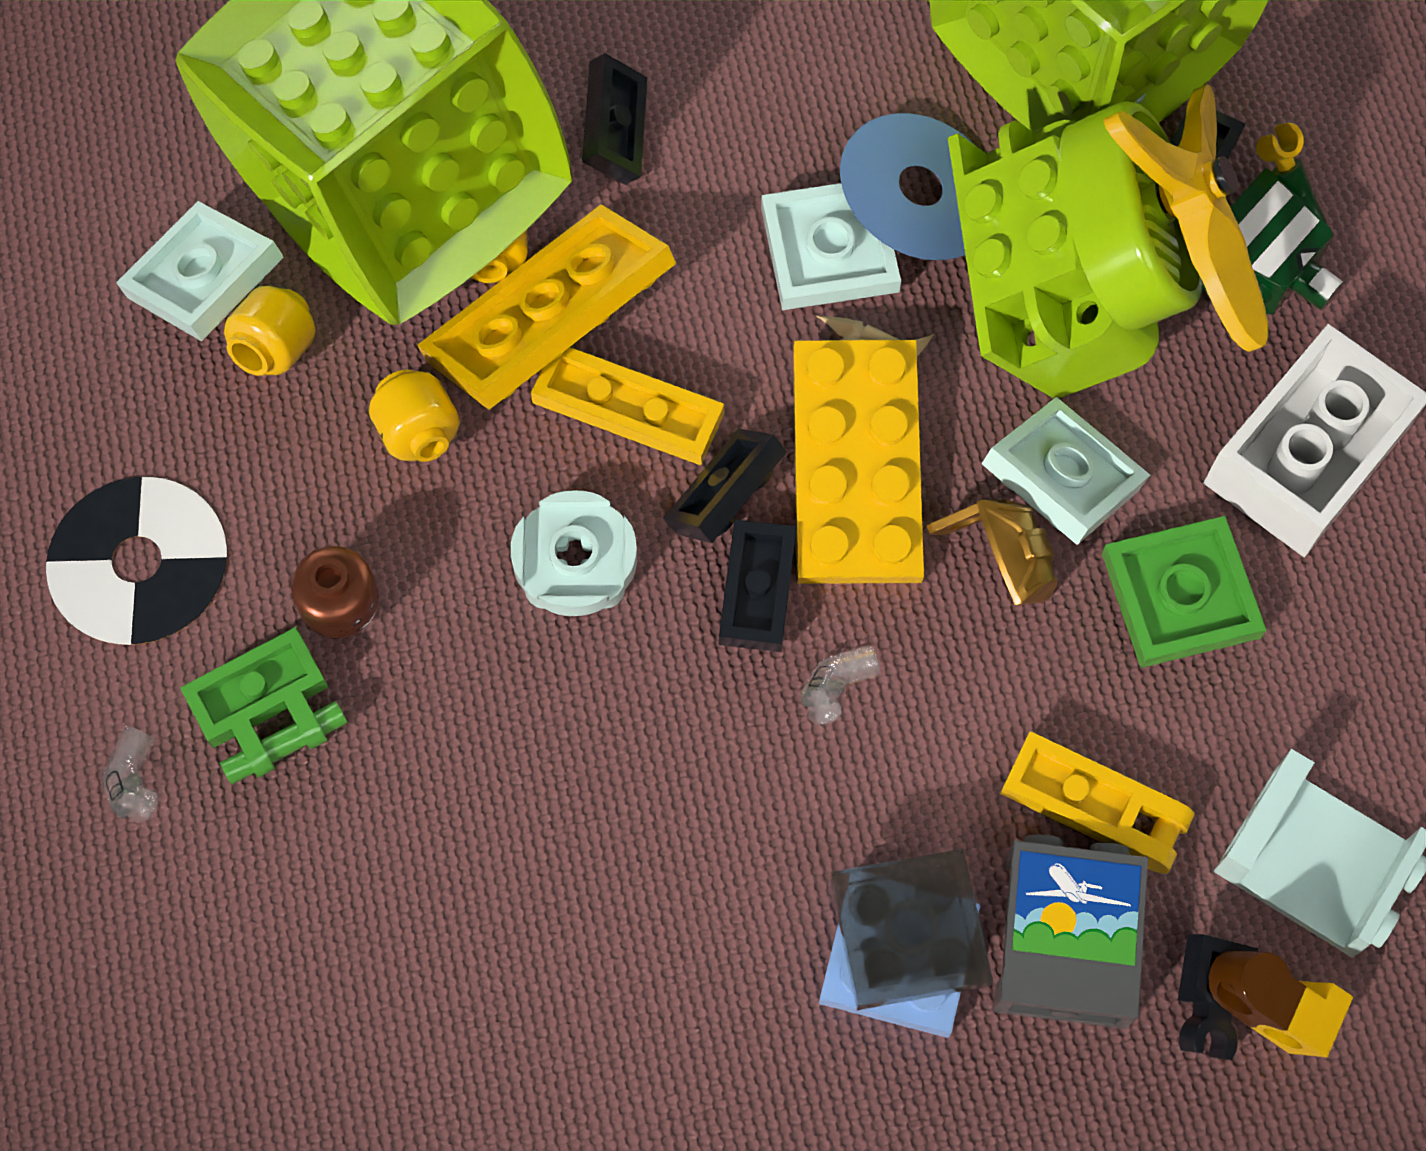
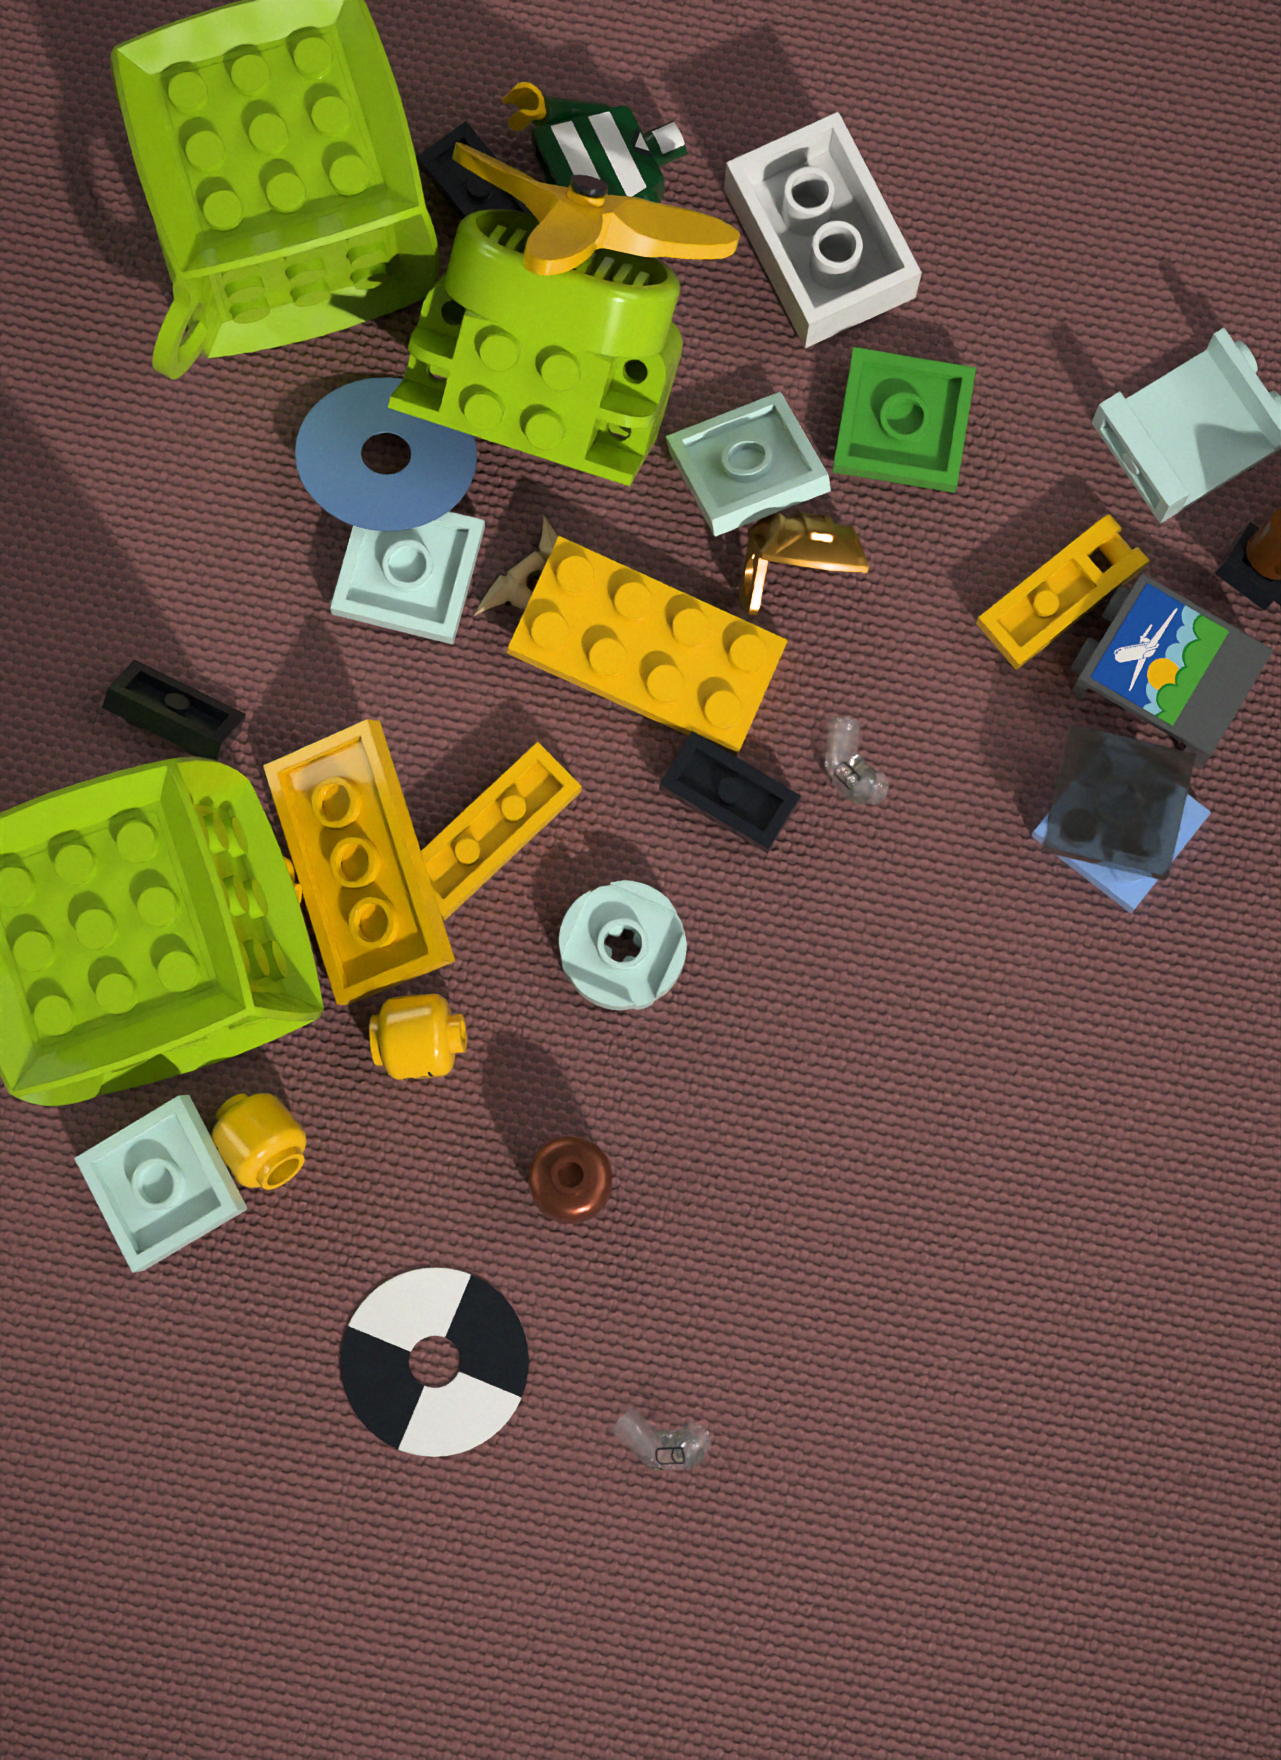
camera: 70 degrees left, 10 degrees up
(254, 689) = (629, 1296): bright green plate -> none
(725, 485) = (618, 777): black plate -> none

